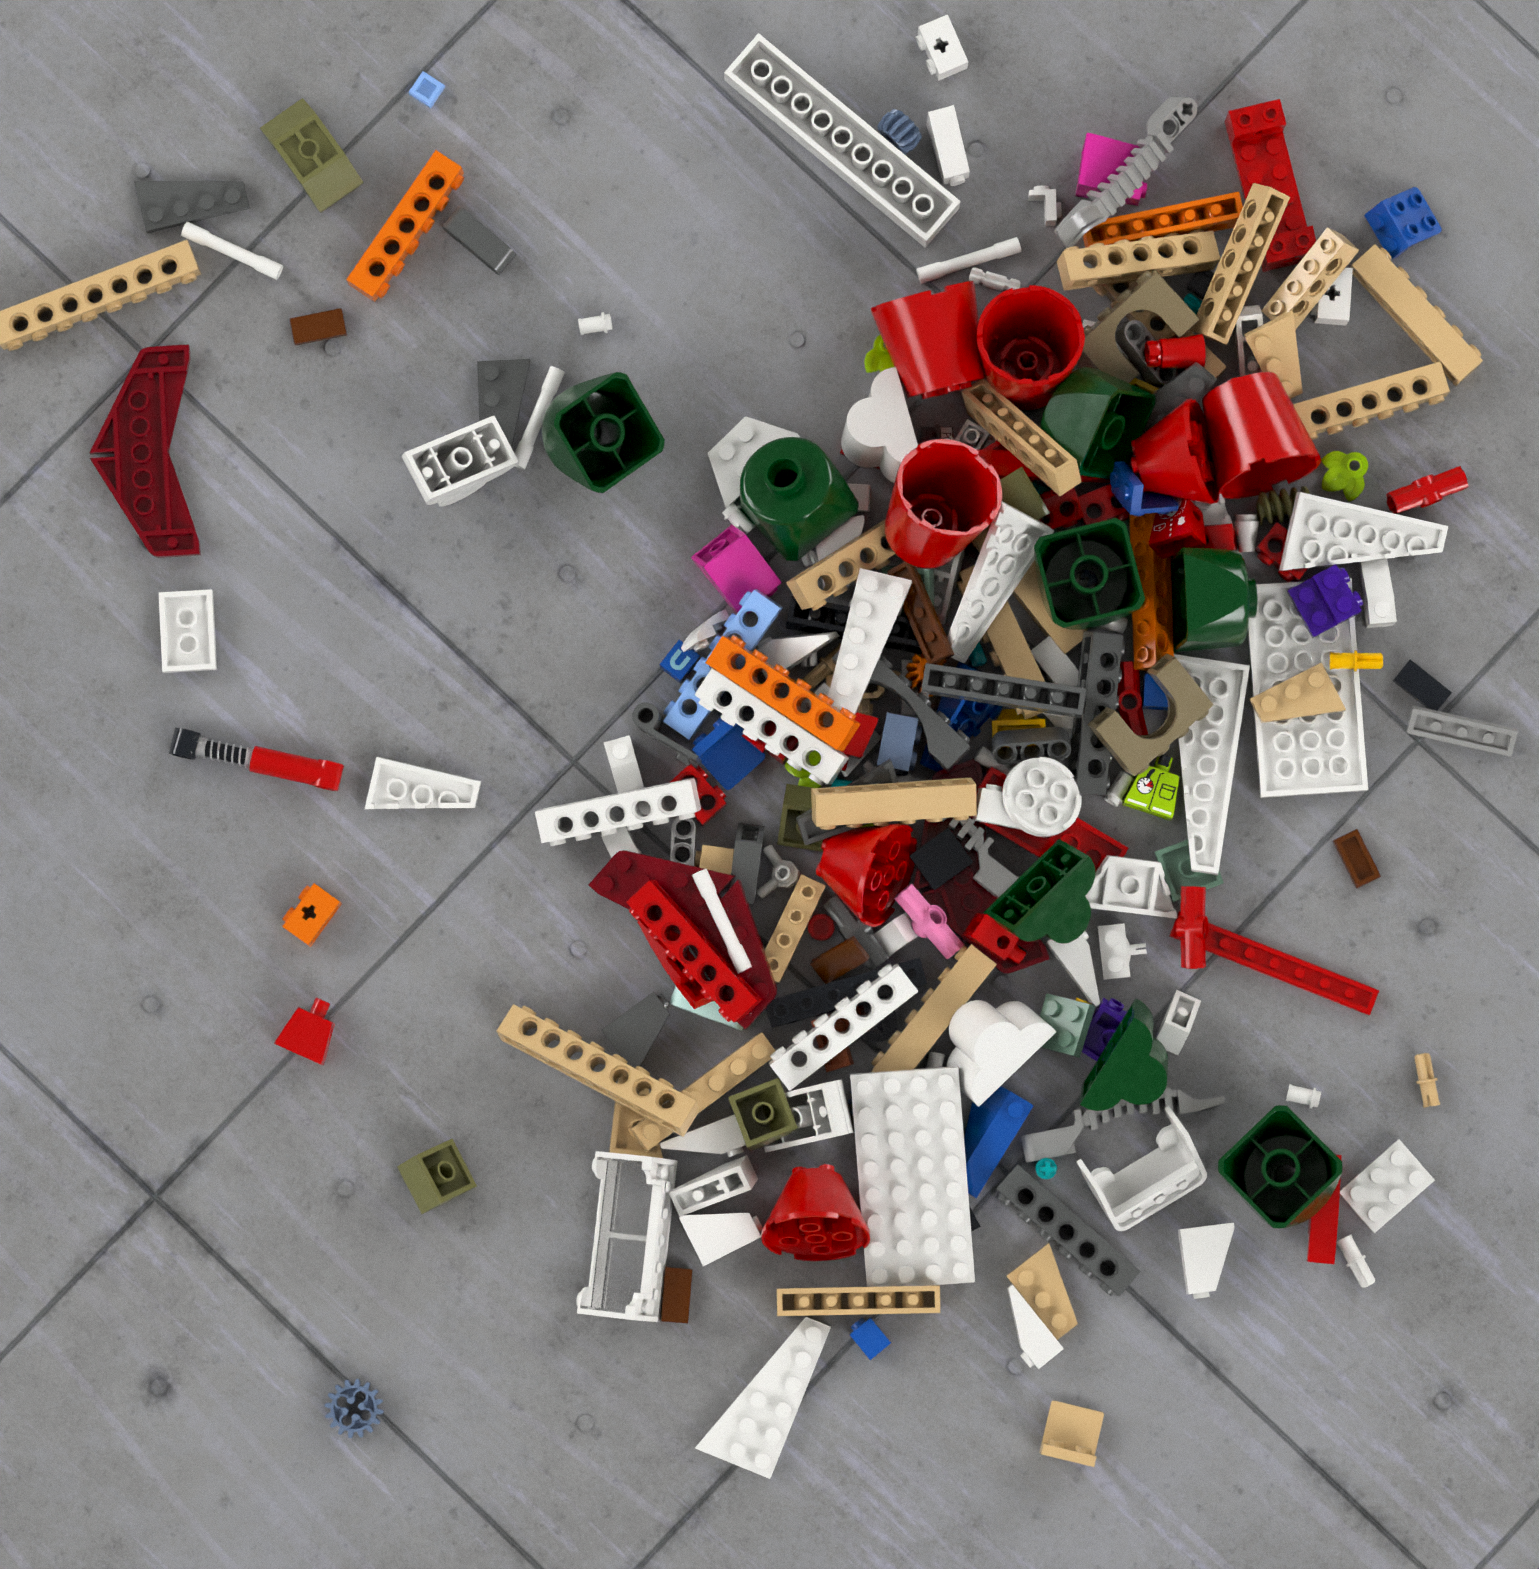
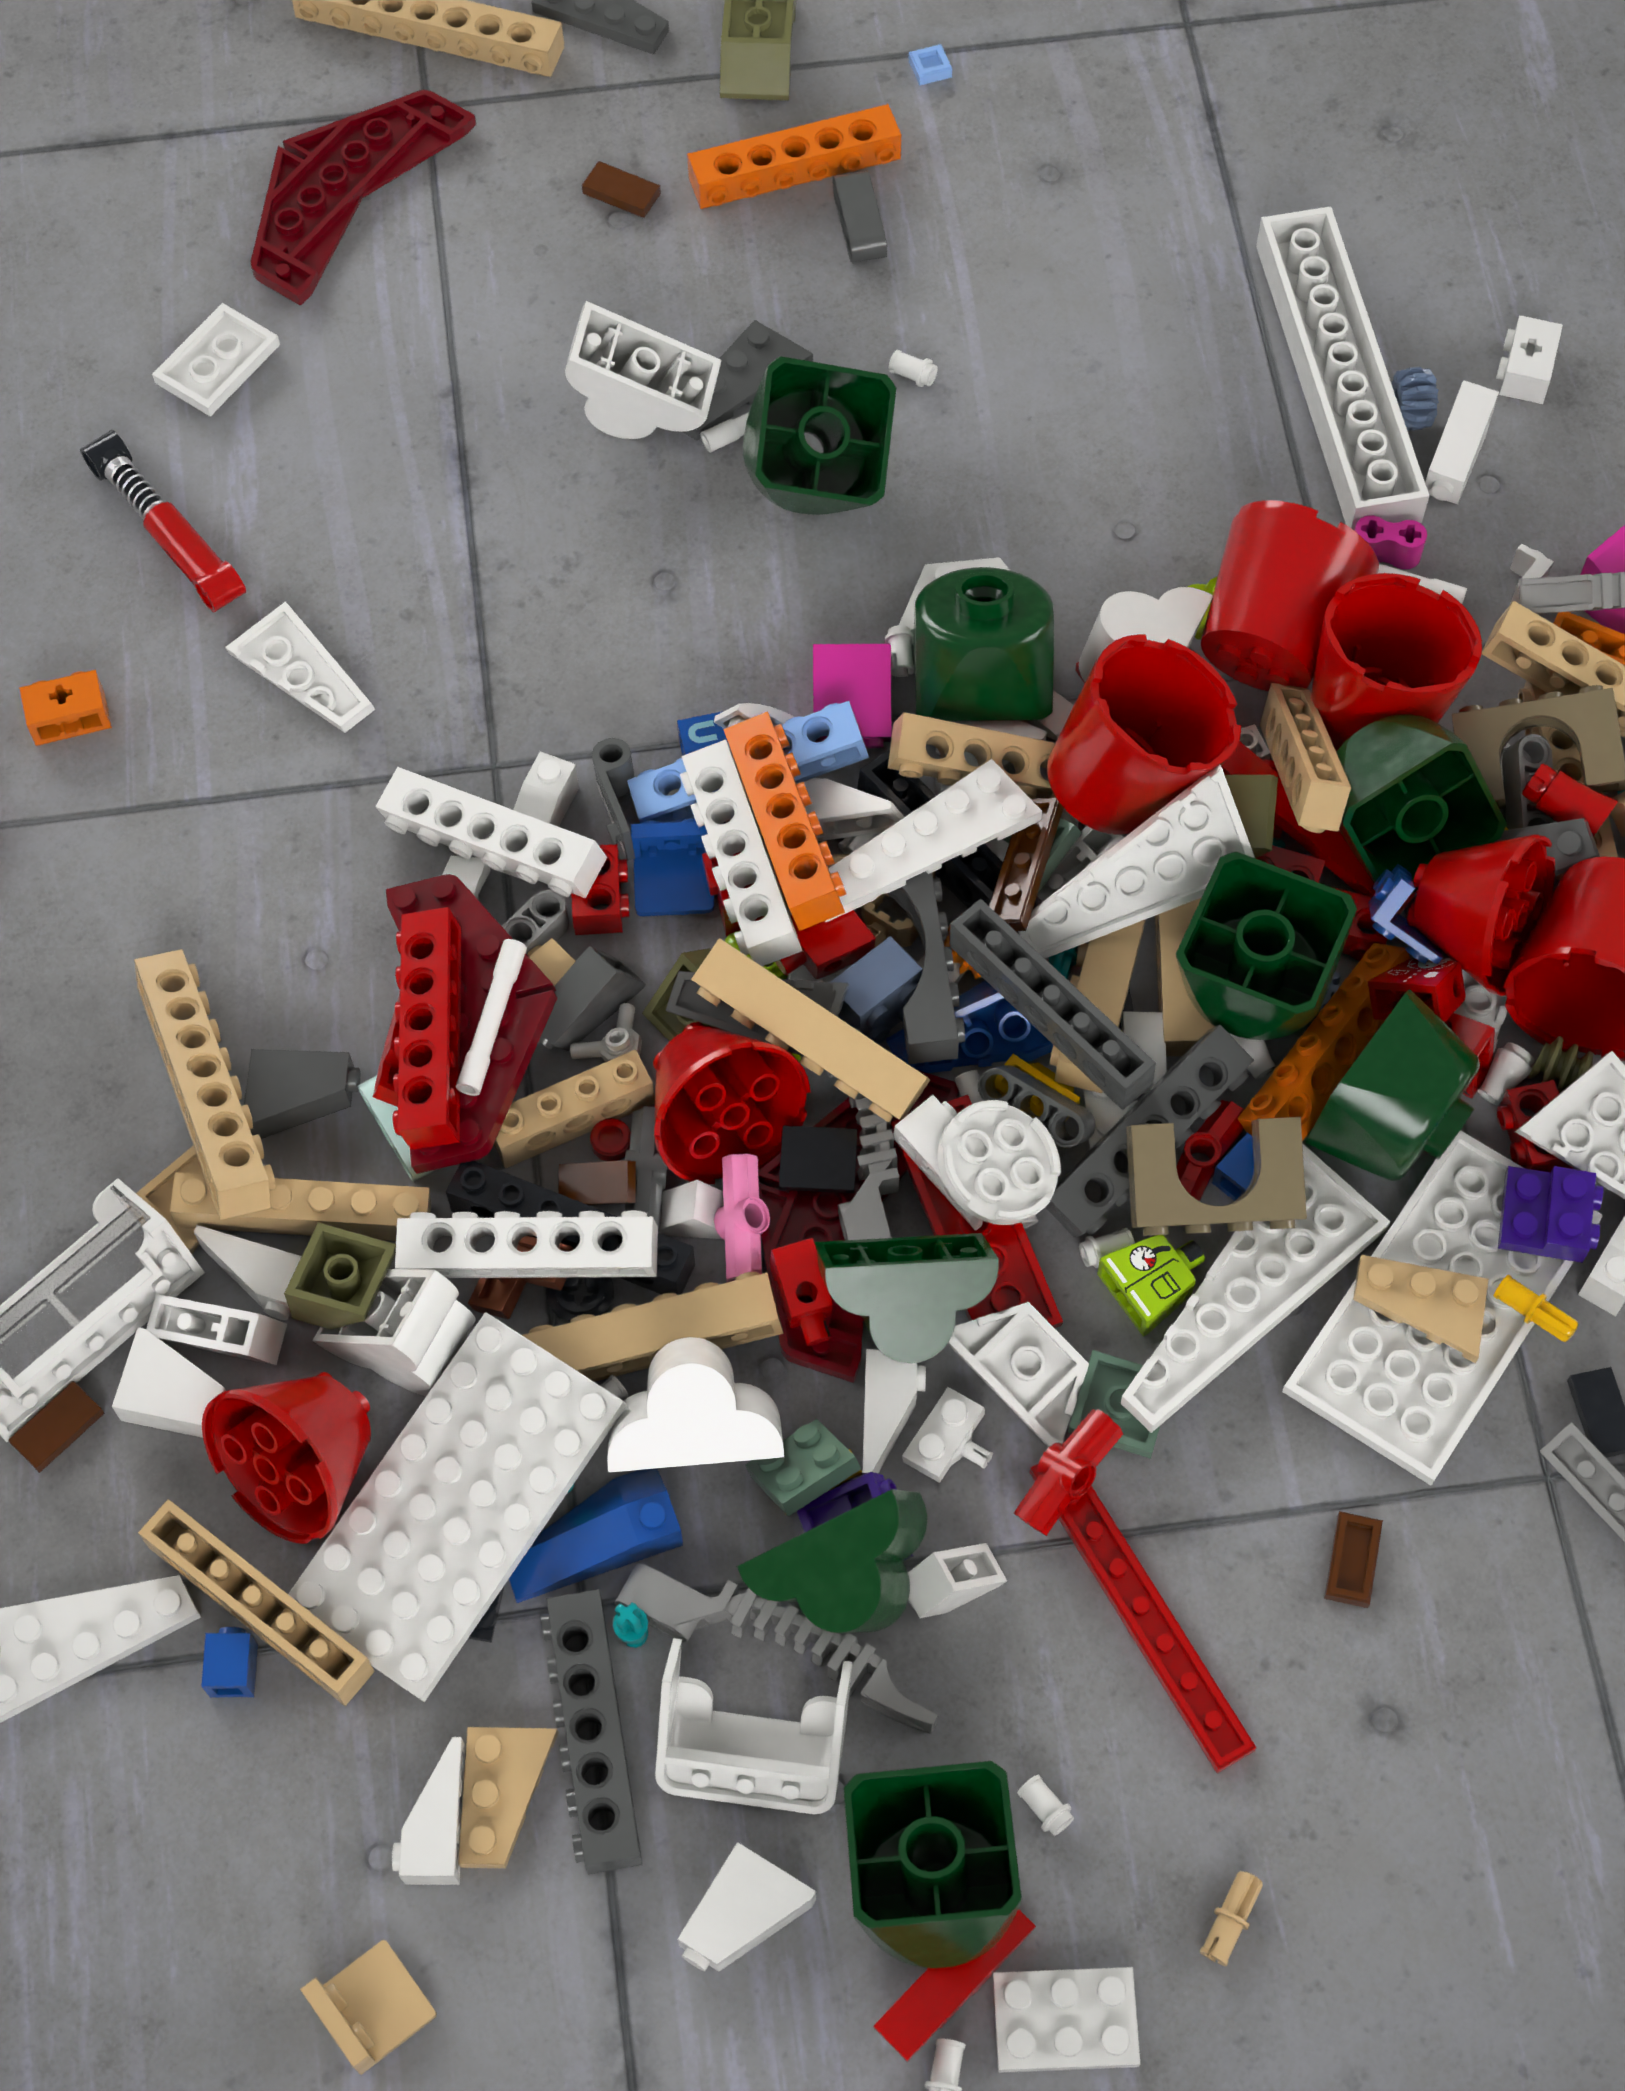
camera: 40 degrees right, 20 degrees down
(207, 239) = (616, 98): white piece -> none
(952, 240) = (1394, 542): none -> dark pink axle

